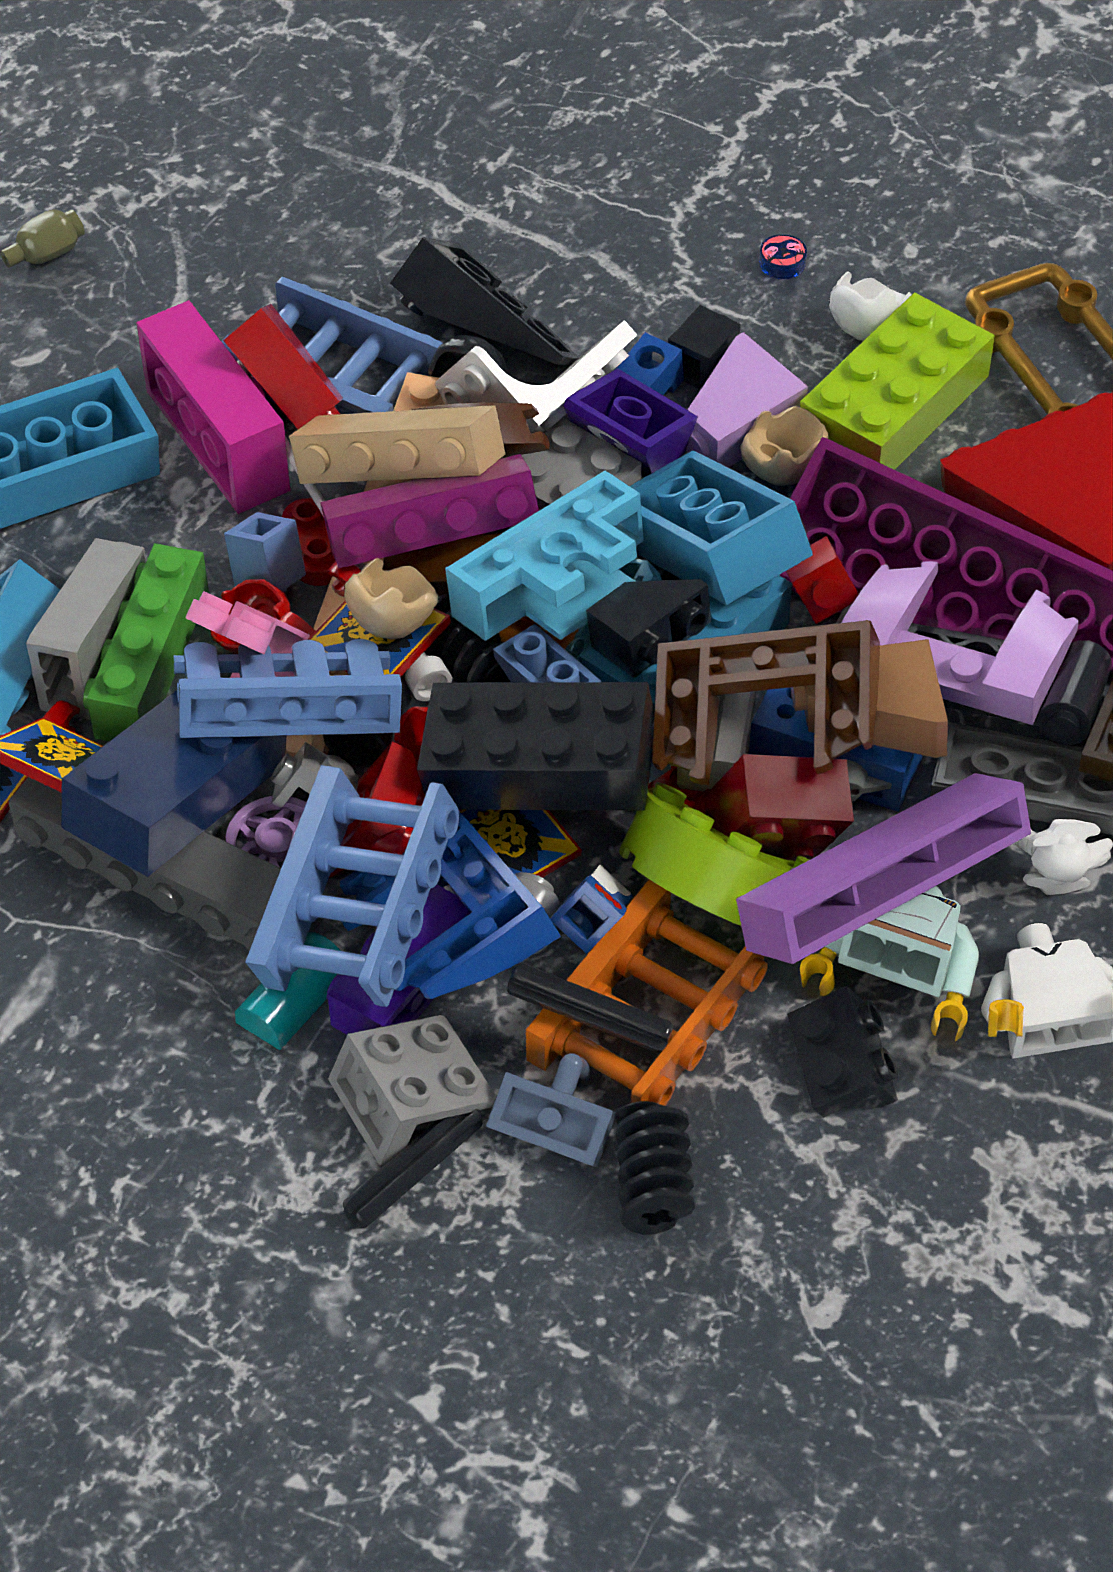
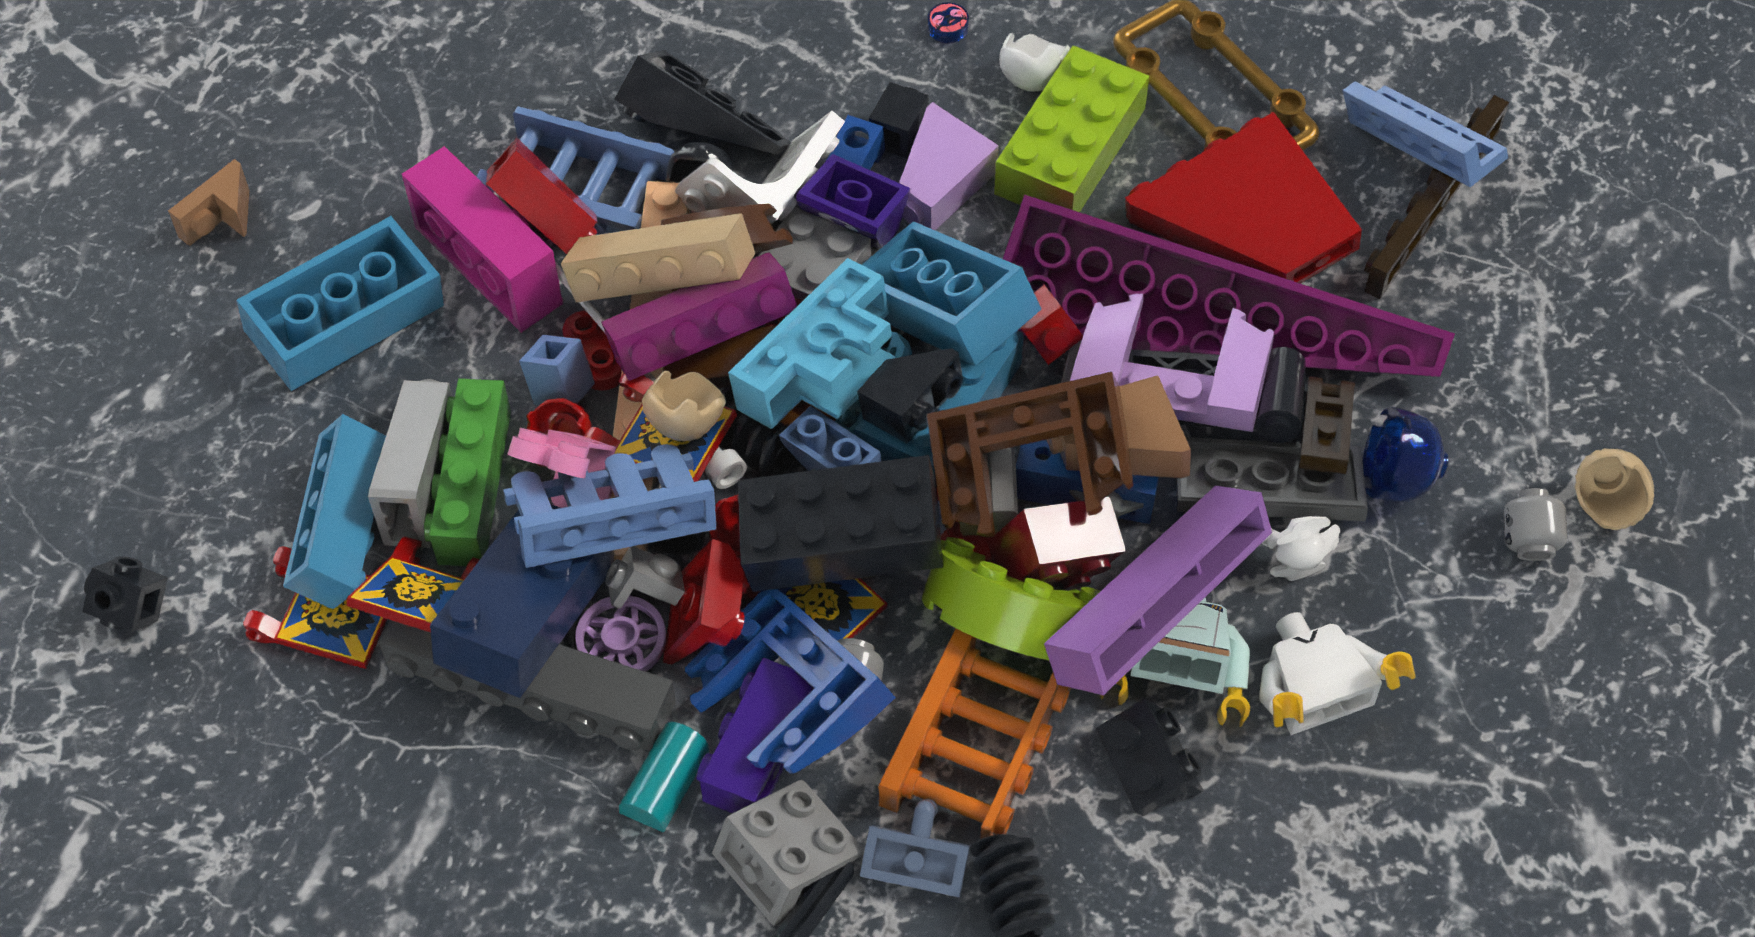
camera: 10 degrees left, 5 degrees up
(44, 238) = (295, 96): olive plant -> none
(317, 852) = (668, 654): medium blue fence -> none
(589, 1008) = (931, 757): black axle -> none
(595, 906) = (914, 657): blue leg -> none
(782, 445) = (988, 202): tan hair -> none

